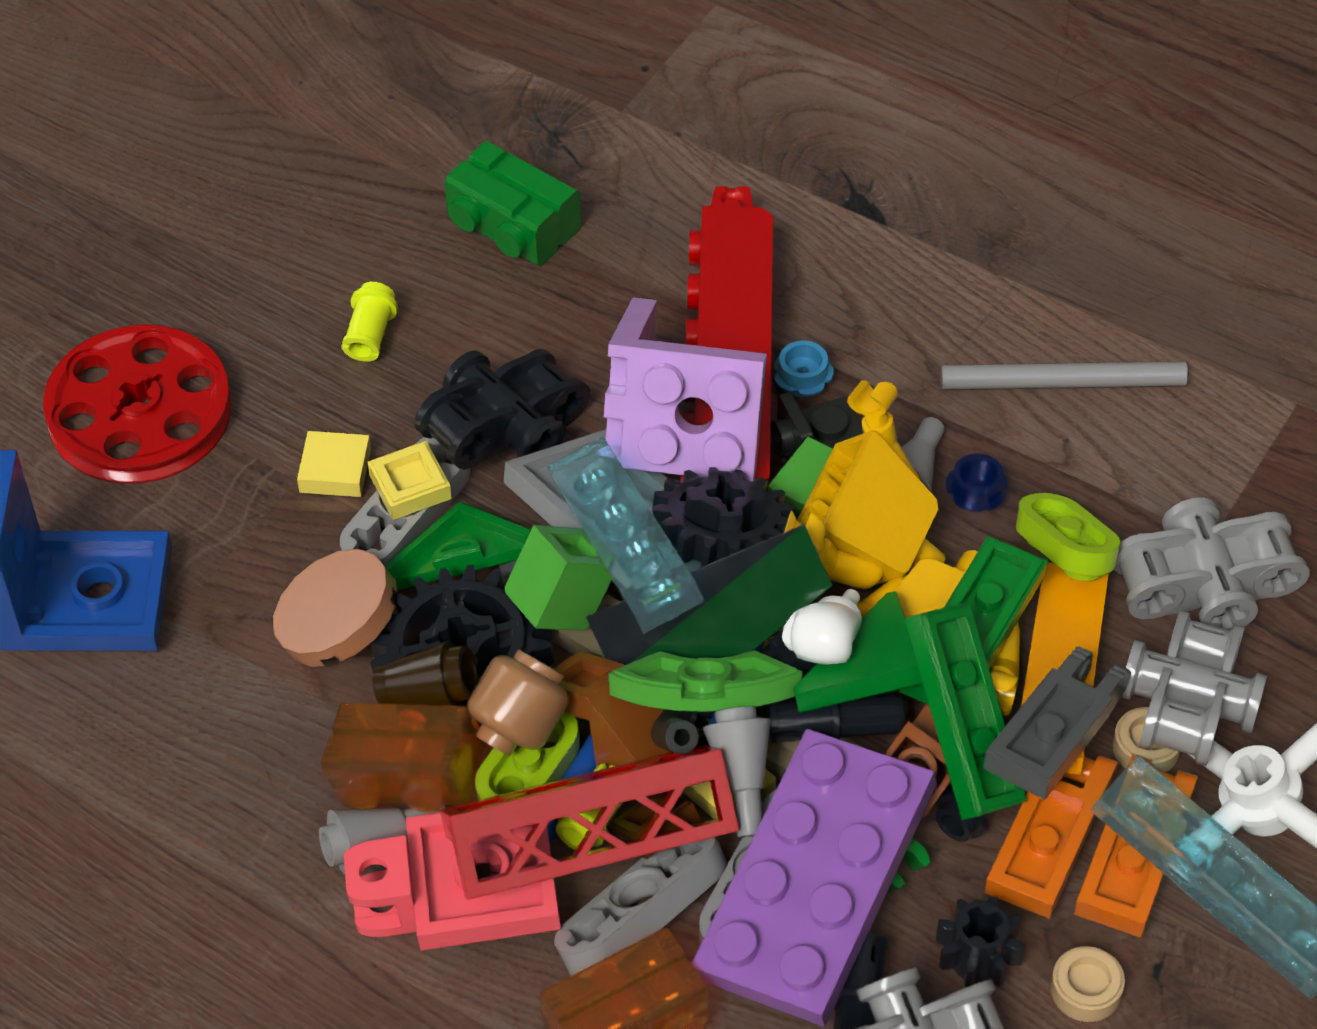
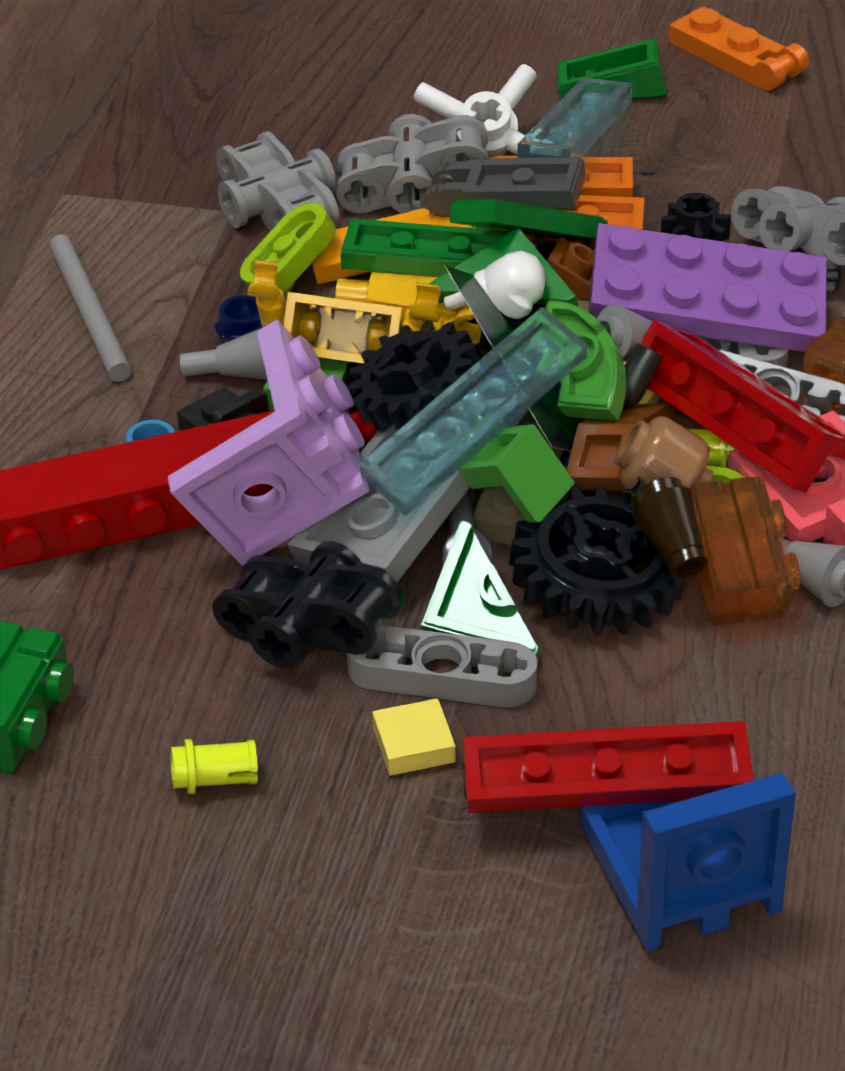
camera: 110 degrees left, 10 degrees down
(139, 423) = (416, 953): red wedge -> none
(189, 548) = (603, 766): none -> red fence
(334, 607) = (604, 652): nougat tile -> none
(409, 480) = (428, 644): light yellow tile -> none
(1087, 984) = (681, 182): tan tile -> none

